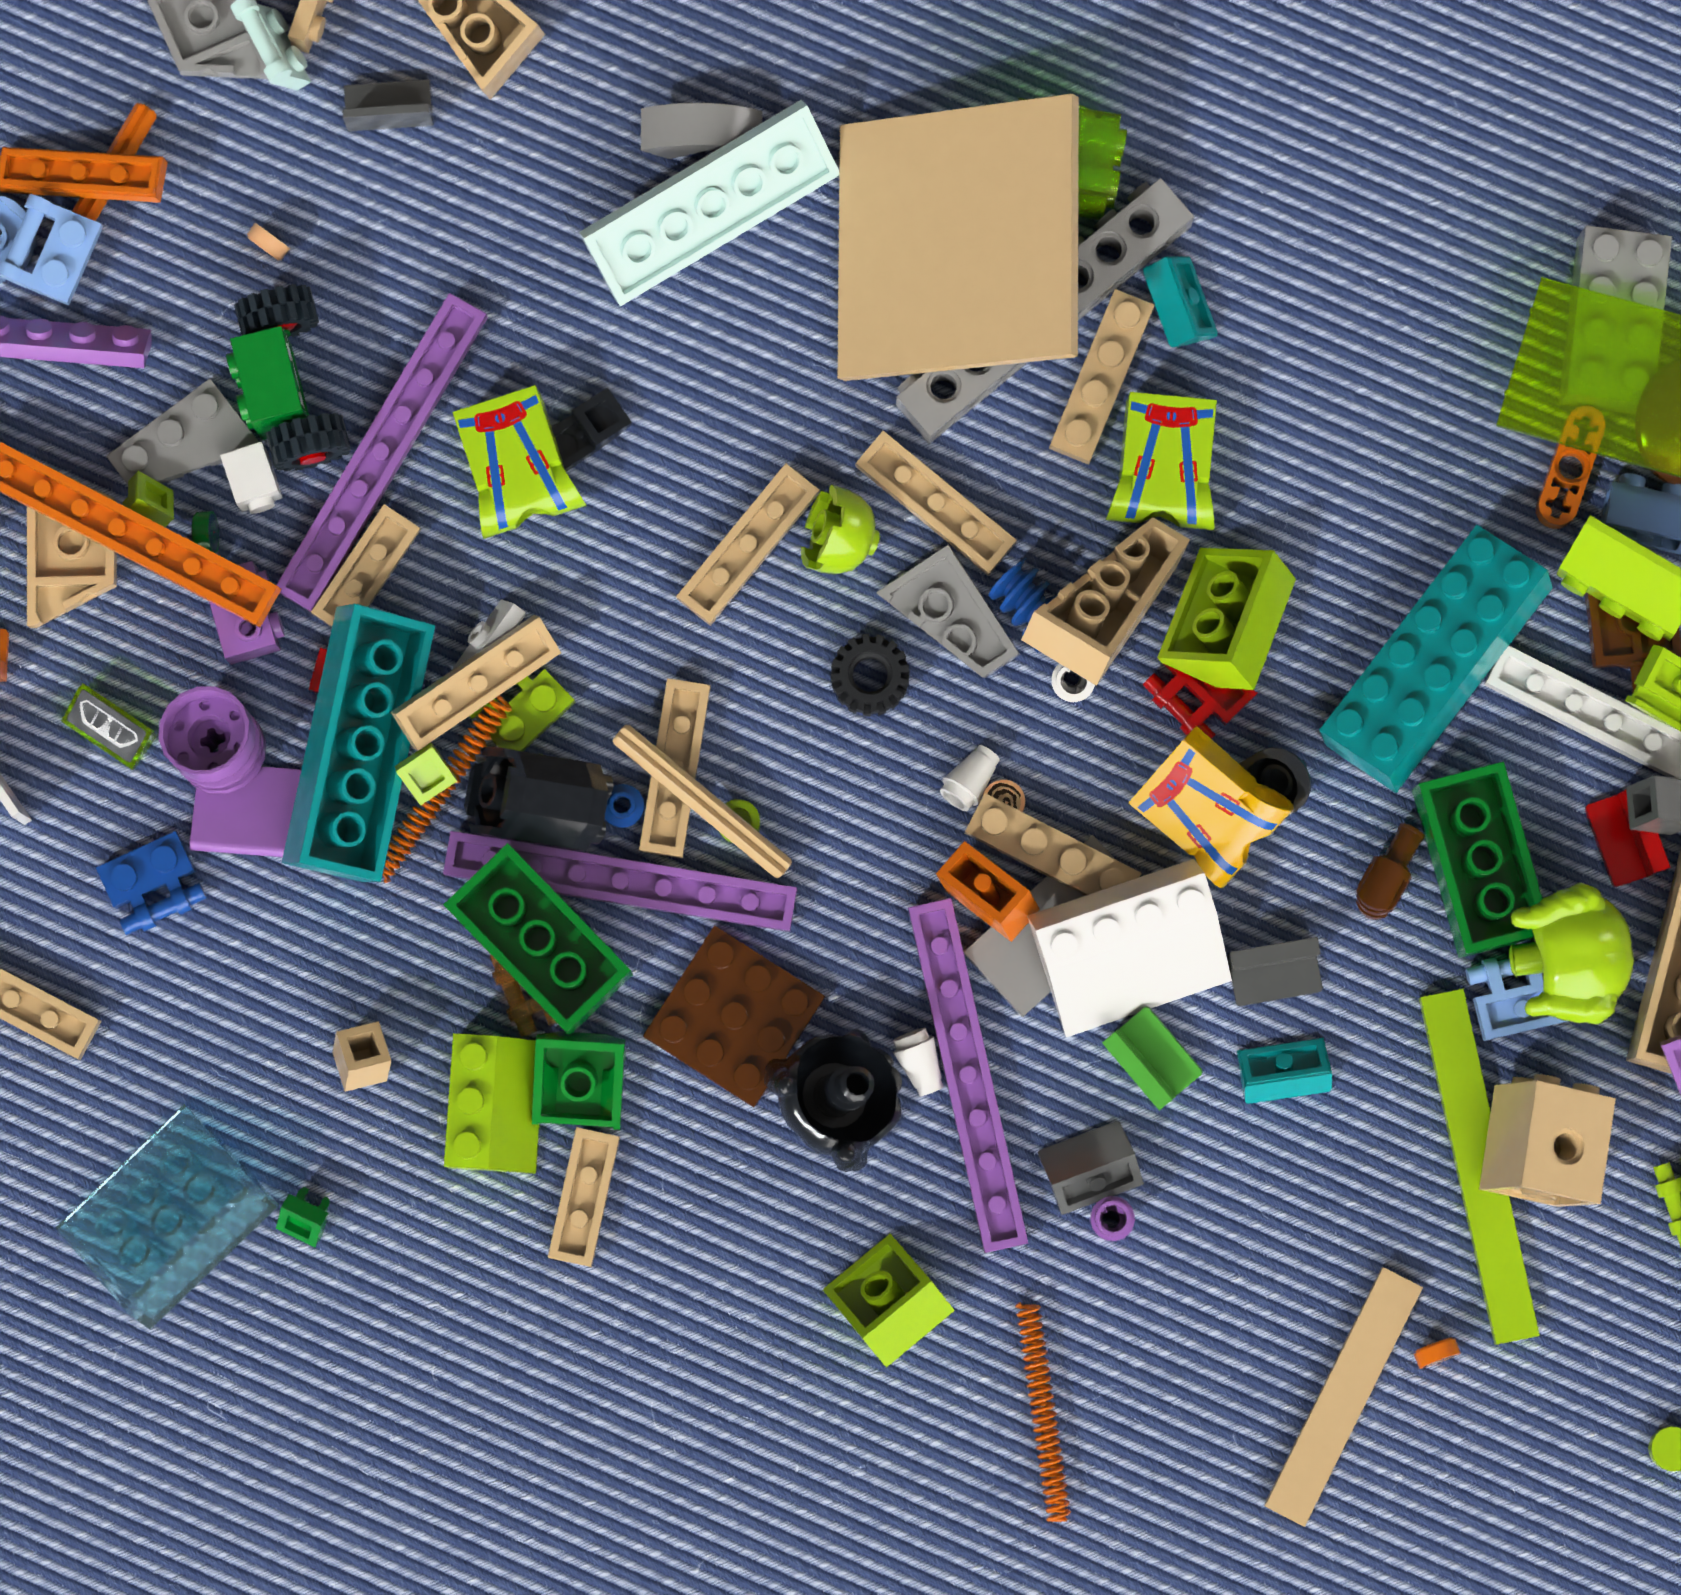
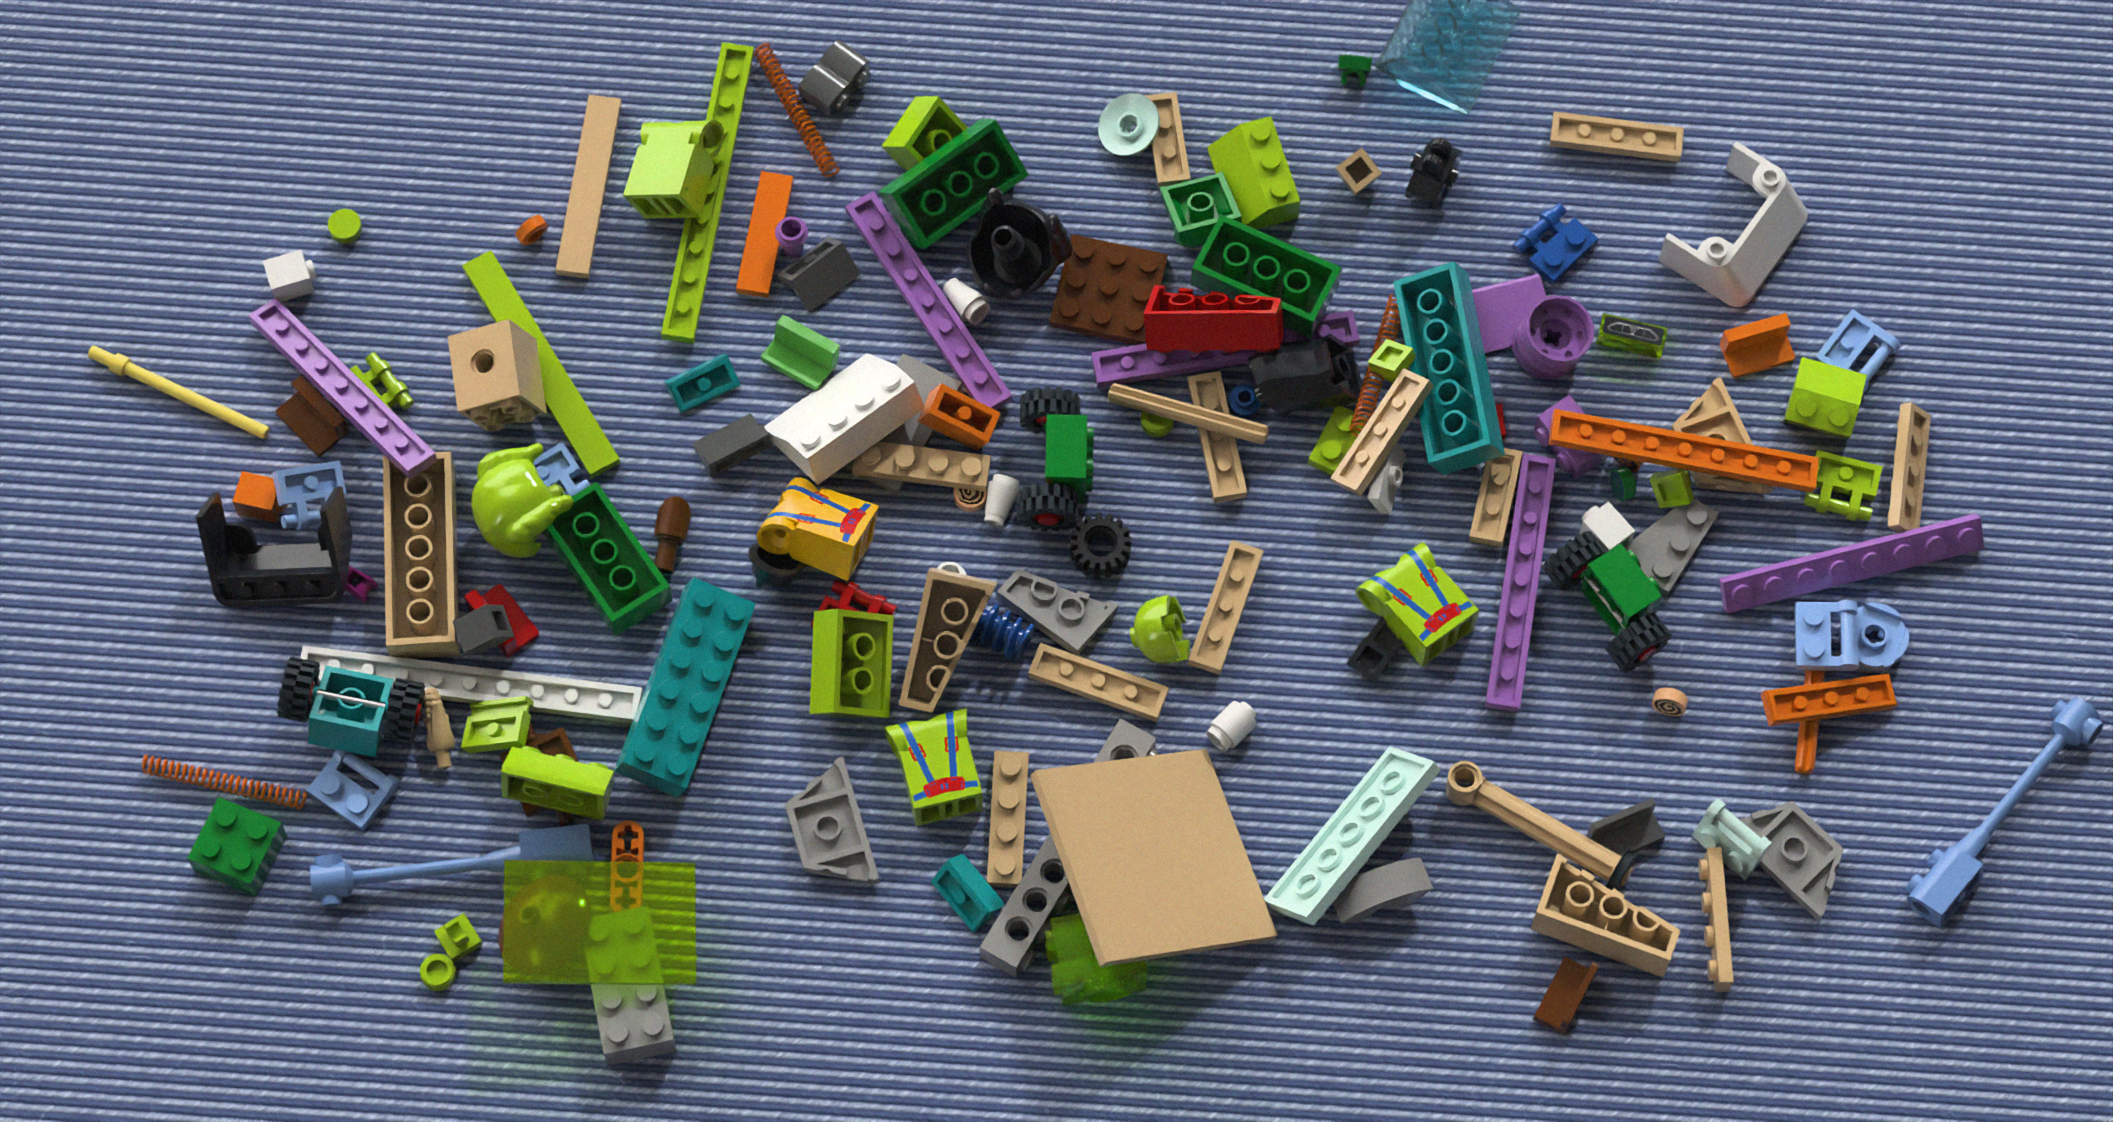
camera: 160 degrees right, 15 degrees down
(264, 1024) = (1434, 171): none -> black hinge
(420, 59) = (1538, 825): none -> tan piece
(632, 898) = (1212, 322): none -> red wedge
(644, 1231) = (1121, 116): none -> light aqua dish
(797, 391) = (1232, 725): none -> white brick
(875, 789) = (1067, 459): none -> brick
(883, 1216) = (952, 183): none -> green brick
(979, 1435) = (834, 78): none -> dark grey brick
(1141, 1249) = (761, 243): none -> orange tile
(1193, 1332) = (700, 233): none -> lime plate
(1232, 1370) = (673, 168): none -> lime piece
(1315, 434) = (831, 828): none -> light grey wing

